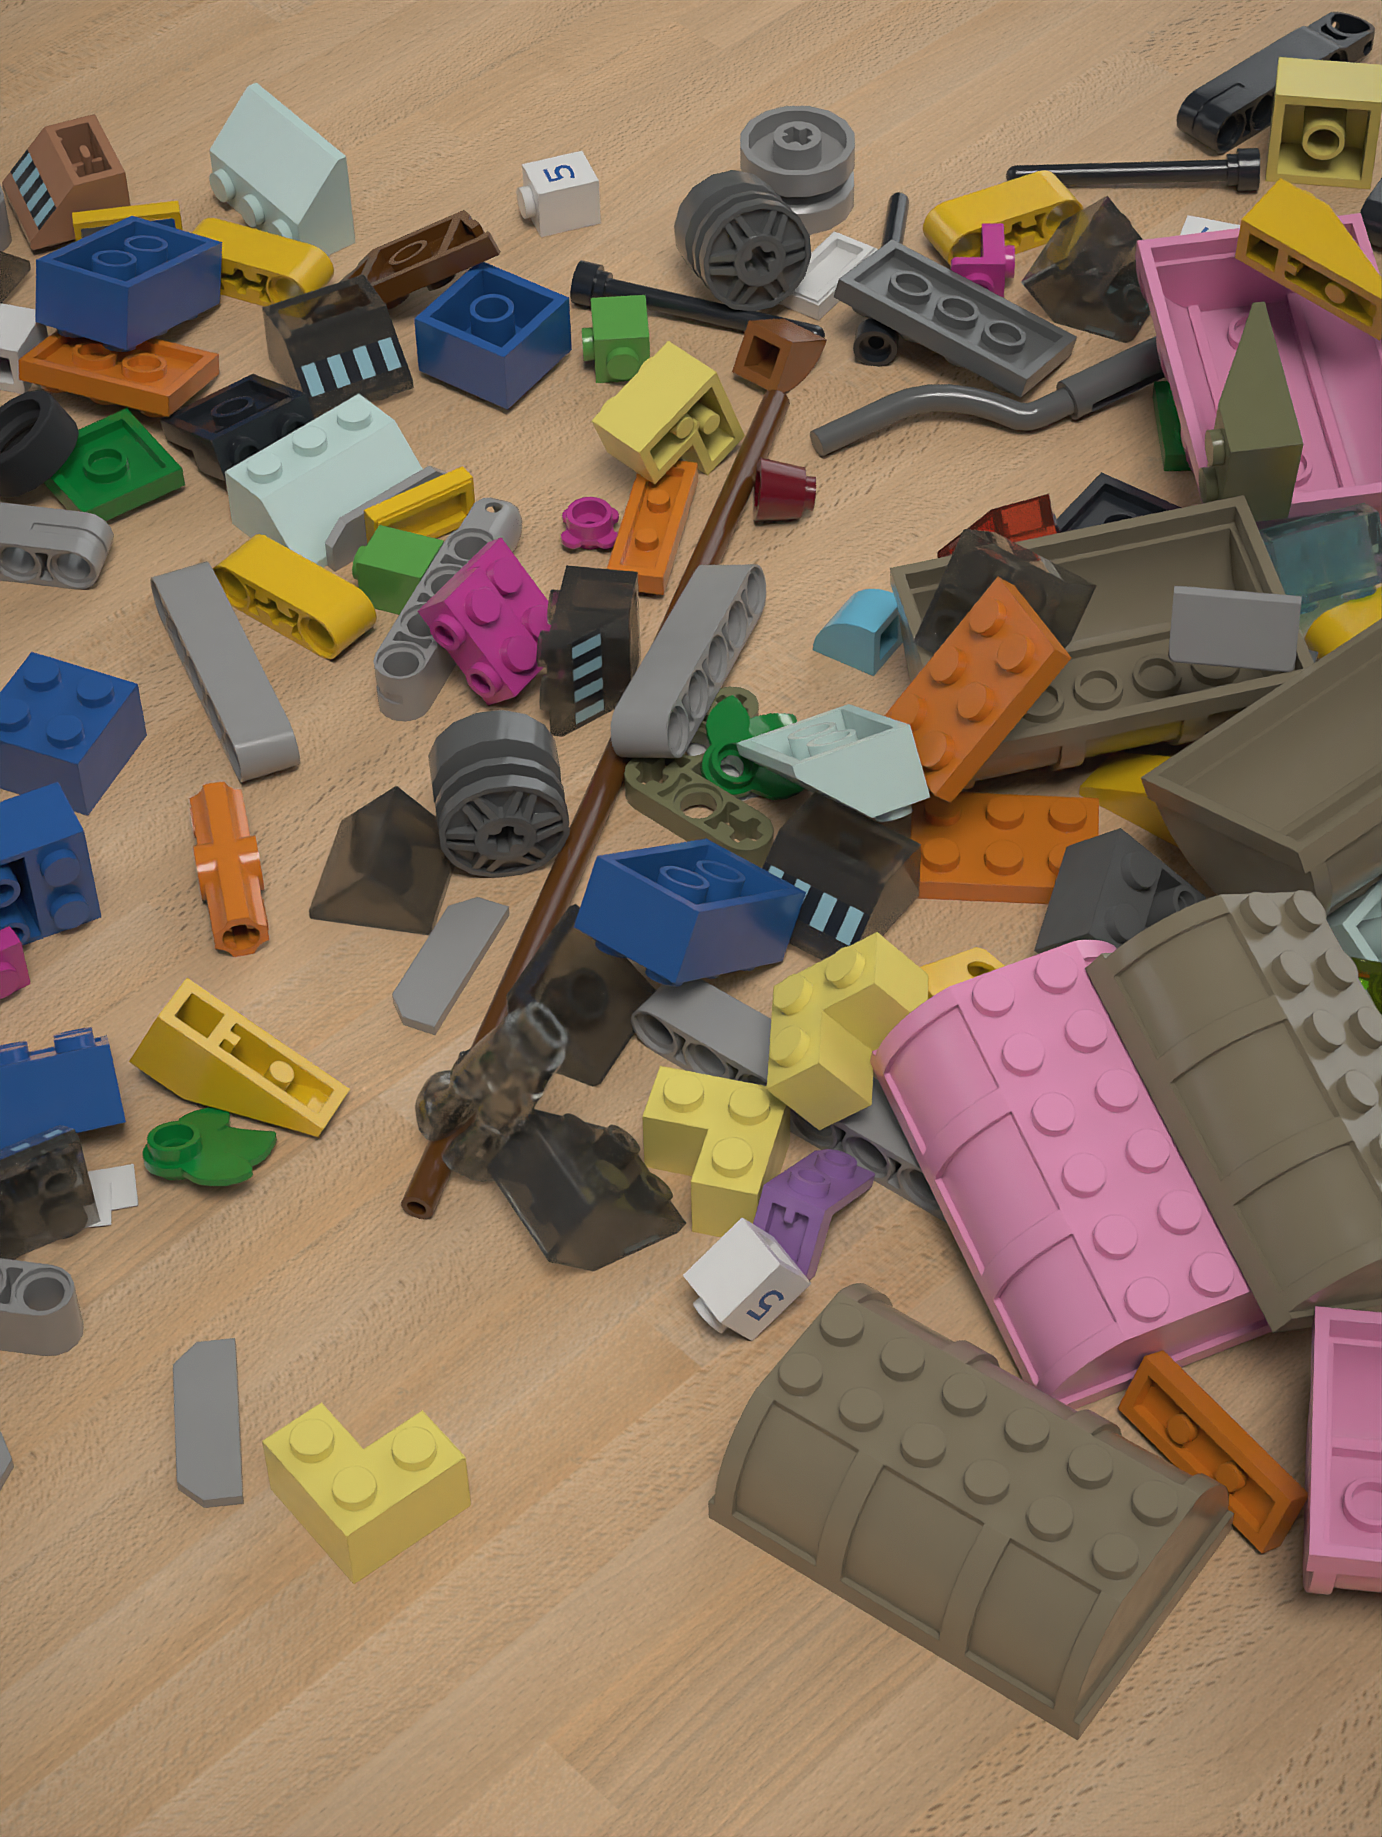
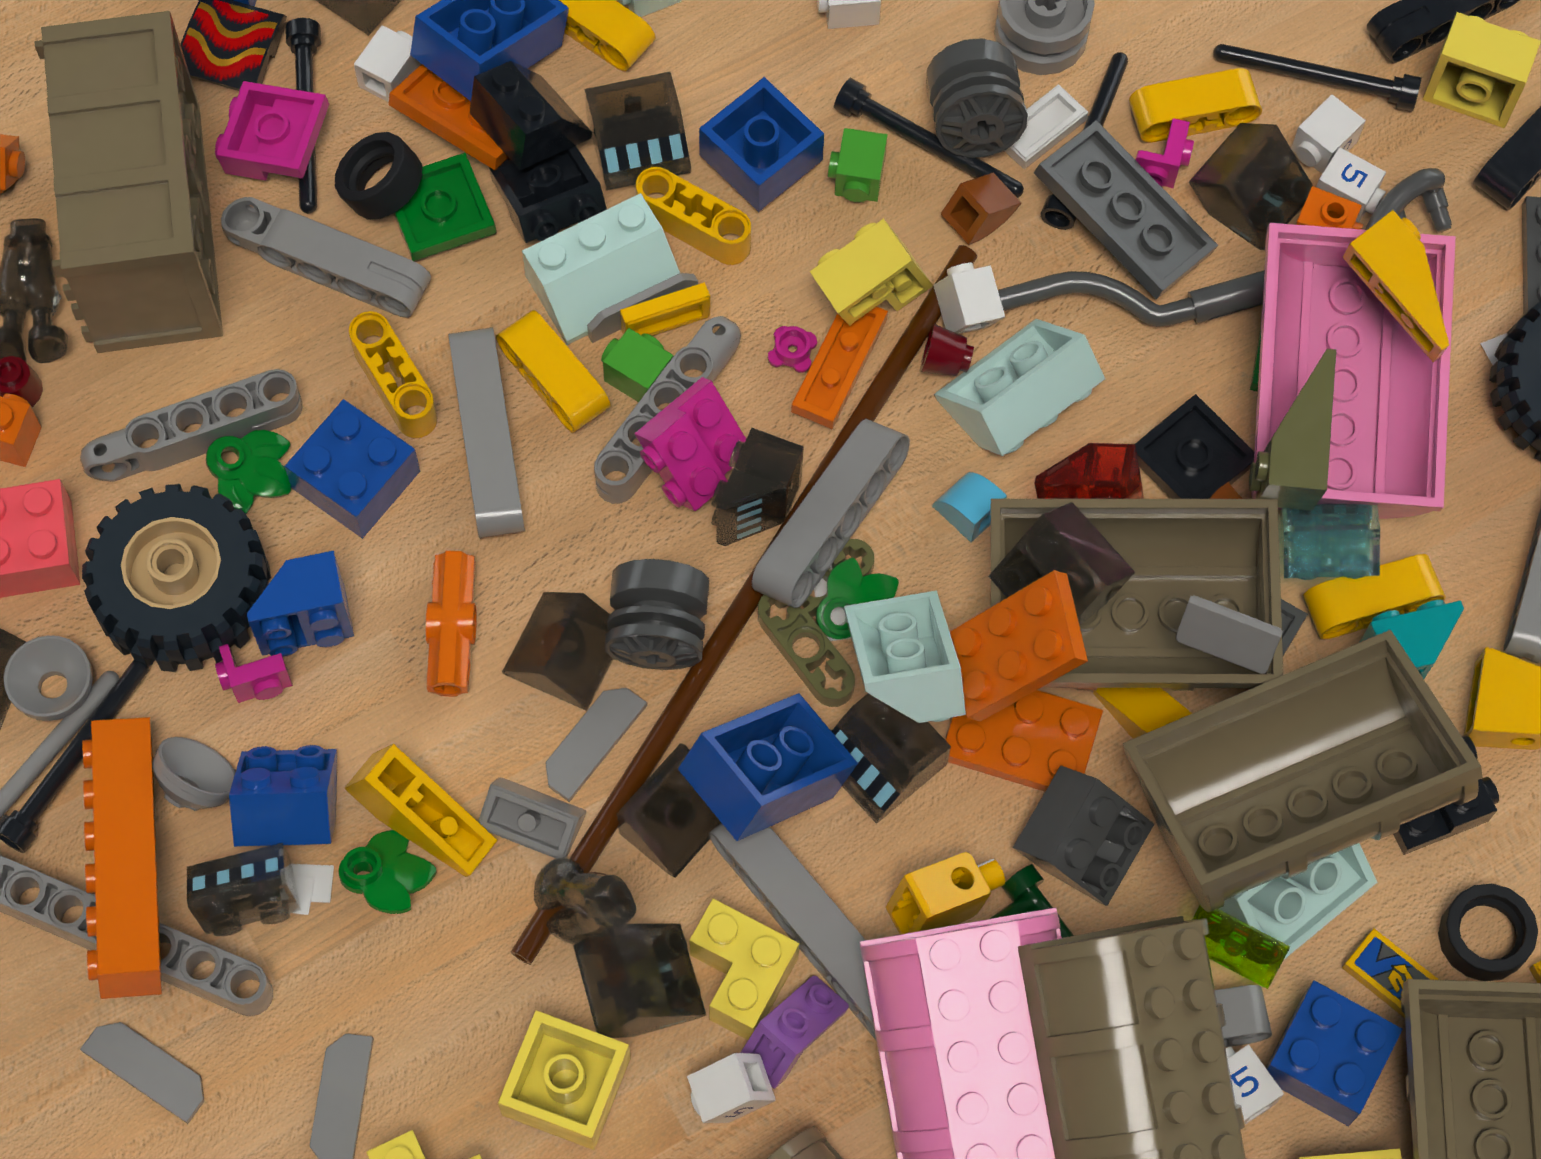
camera: 10 degrees right, 20 degrees up
(86, 628) = (372, 361): none -> yellow beam
(191, 346) = (524, 114): none -> black slope
(386, 1054) = (531, 818): none -> light grey slope
(426, 258) = (718, 54): reddish brown wing -> none
(440, 418) = (696, 216): none -> yellow beam
(516, 1315) = (564, 1080): none -> light yellow brick
(795, 428) = (969, 298): none -> white brick
(831, 1023) = (835, 911): light yellow brick -> none
(889, 505) = (1022, 386): none -> light aqua slope
(1166, 205) = (1325, 131): none -> white brick

